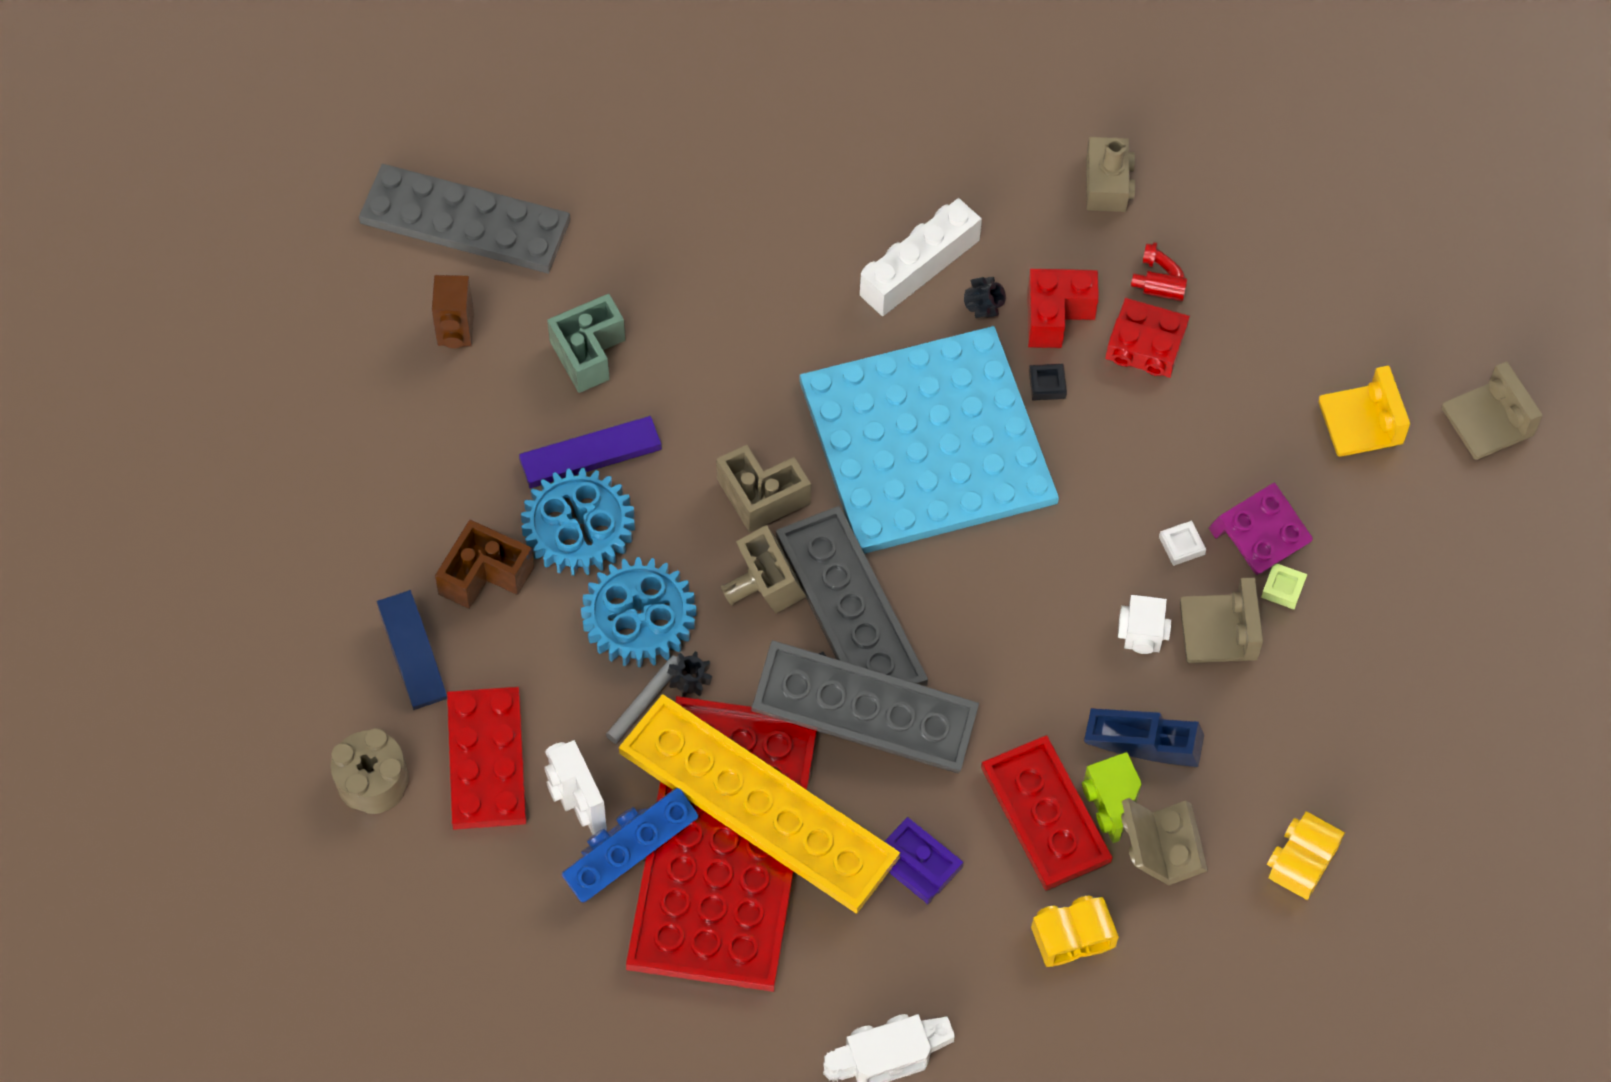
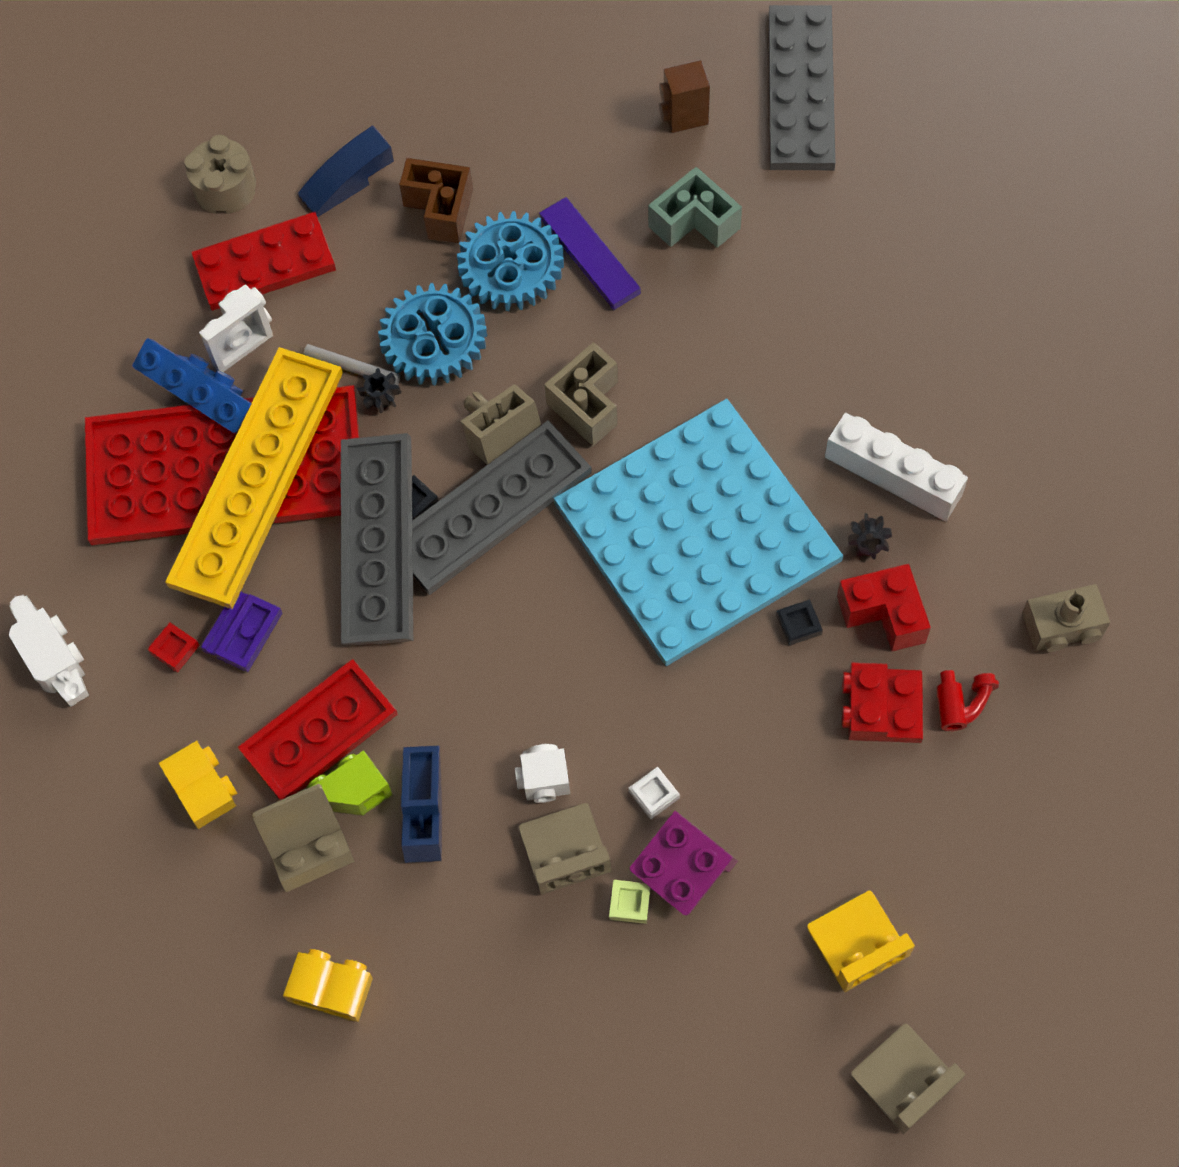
camera: 80 degrees right, 5 degrees up
(918, 928) = (173, 647): none -> red plate

